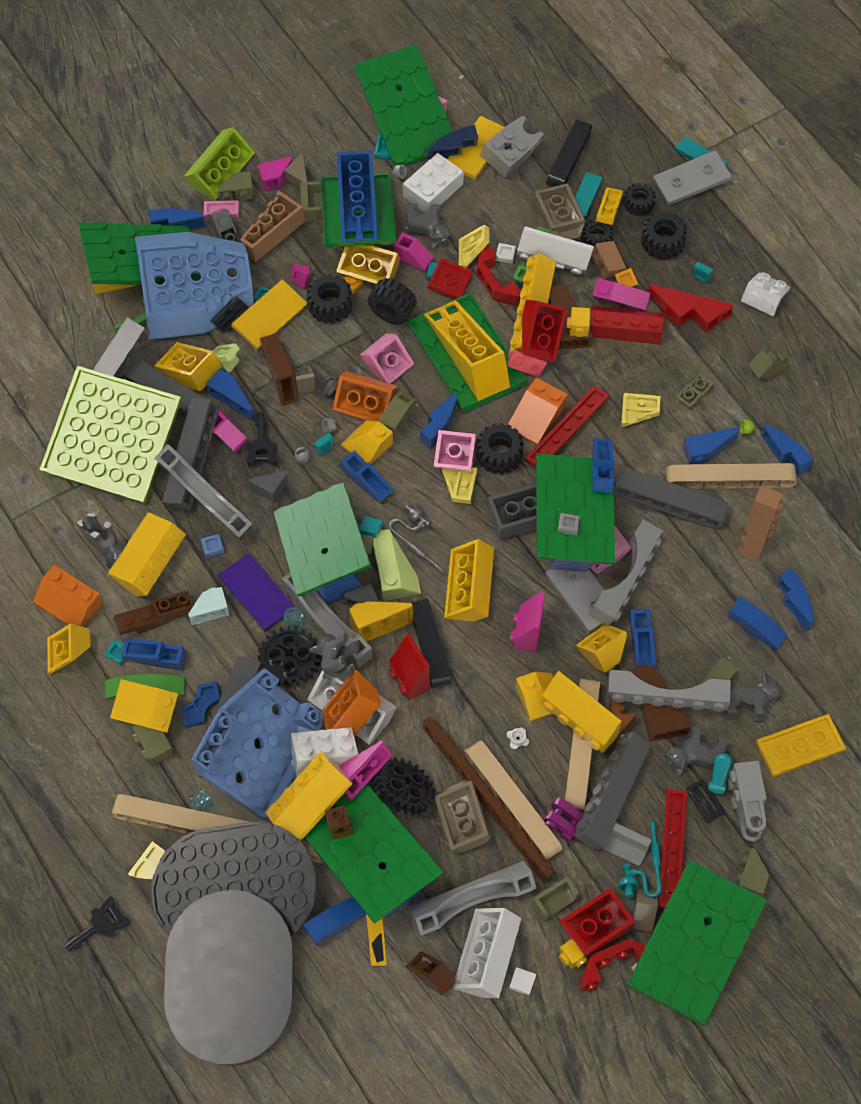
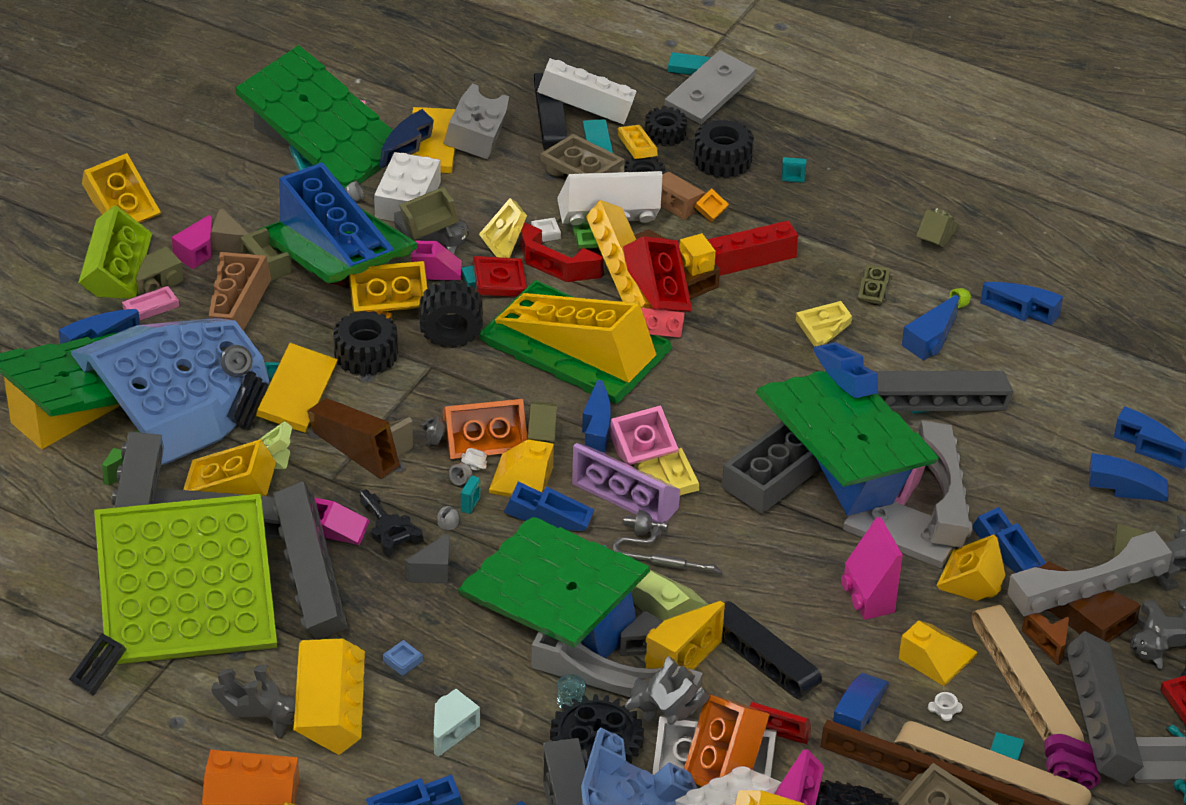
camera: 30 degrees left, 20 degrees down
(33, 472) = (101, 666): none -> black tile
(154, 615) = (385, 759): reddish brown slope -> none
(203, 491) = (403, 607): light grey arch -> none
(223, 225) = (166, 309): dark grey slope -> none
(226, 389) = (320, 483): blue slope -> none
(229, 285) = (236, 360): none -> dark grey hat
(250, 113) = (120, 185): none -> yellow slope
(256, 592) = (499, 684): dark purple tile -> none
(300, 275) = (308, 333): dark pink tile -> none
(344, 418) = (474, 458): none -> white plate
(387, 358) = (482, 376): bright pink slope -> none
(399, 703) = (787, 724): none -> red slope
(409, 669) = (767, 670): red slope -> none
(423, 215) = (429, 213): none -> olive panel
(423, 479) = (623, 484): none -> lavender slope
(464, 710) = (860, 701): none -> blue slope
(469, 581) = (761, 567): yellow slope -> none
(503, 436) = (696, 417): black tyre -> none
(535, 787) = (1007, 745): none -> teal tile
(538, 410) = (708, 366): orange slope -> none
(568, 524) = (856, 437): light grey tile -> none
(569, 425) = (755, 372): red plate -> none
(580, 712) = (1011, 631): yellow slope -> none
(599, 150) = (586, 91): none -> white slope
(621, 294) = (715, 219): dark pink slope -> none
(685, 306) = (801, 207): red slope -> none
(732, 476) = (989, 345): tan beam -> none
(761, 522) = (1060, 367): medium nougat wedge -> none
(765, 293) = (880, 167): white bracket -> none

